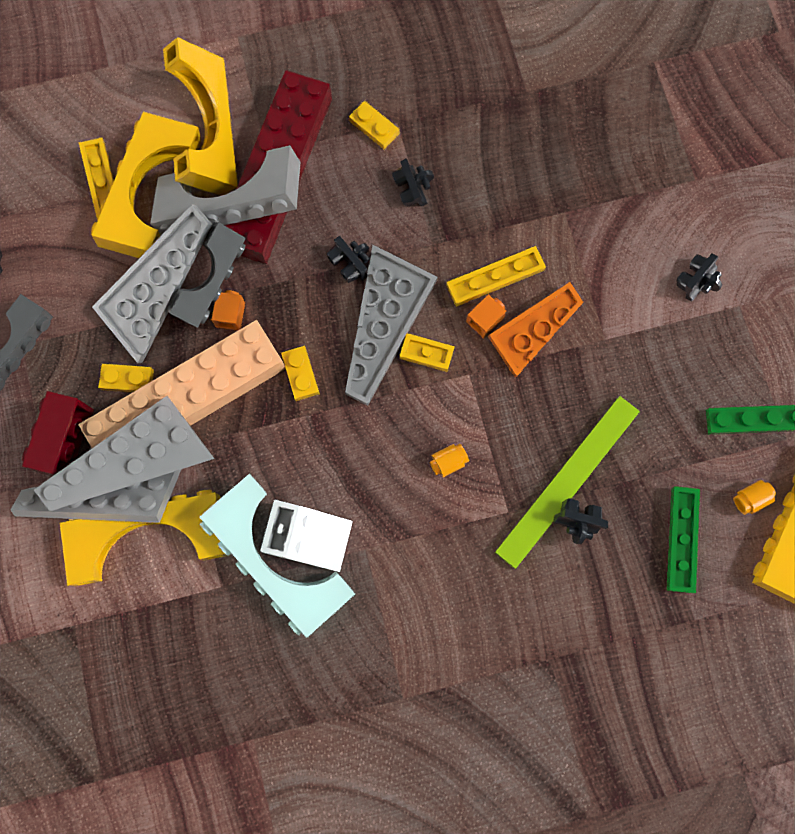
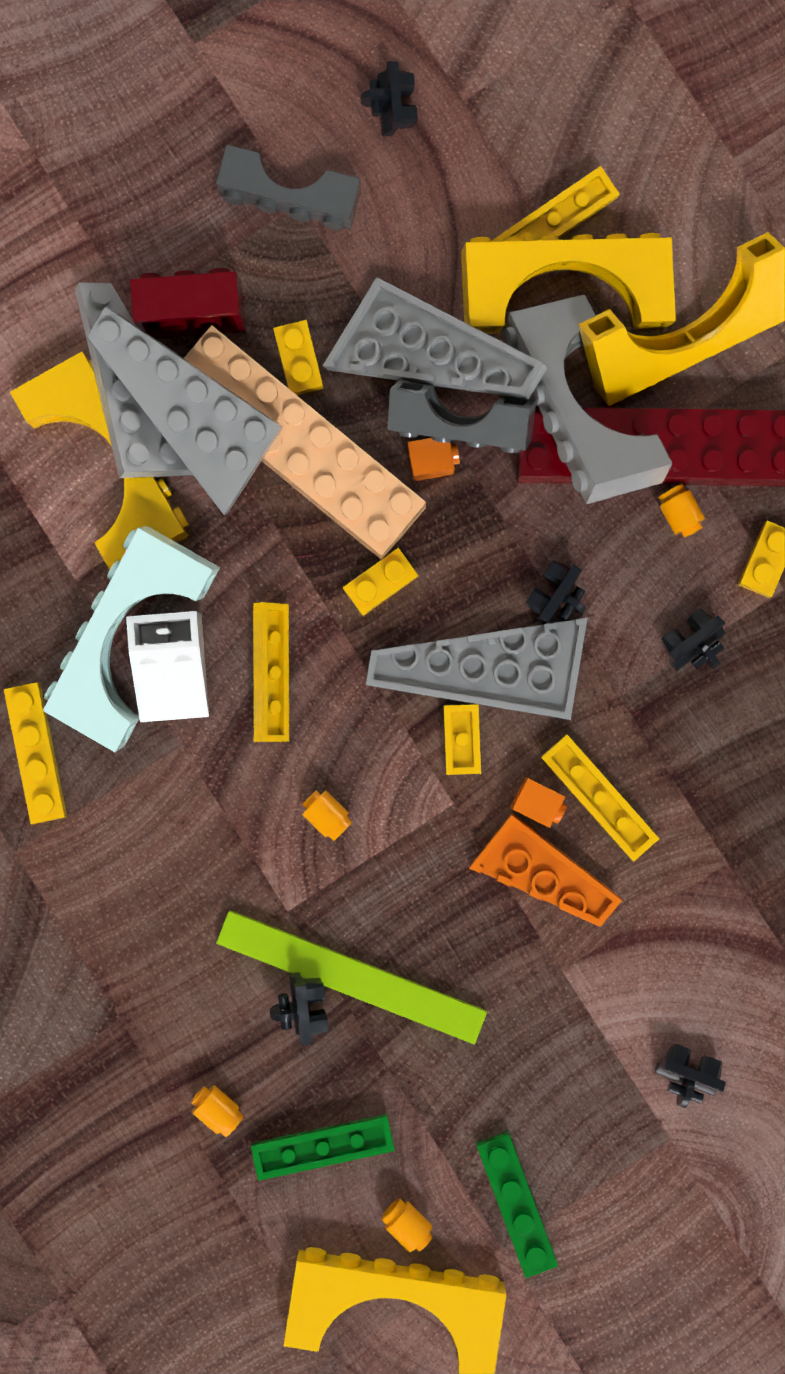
camera: 75 degrees right, 10 degrees up
(323, 165) = (681, 511): none -> light orange brick
(335, 657) = (35, 753): none -> yellow plate
(336, 466) = (271, 672): none -> yellow plate
(636, 607) = (216, 1110): none -> light orange brick

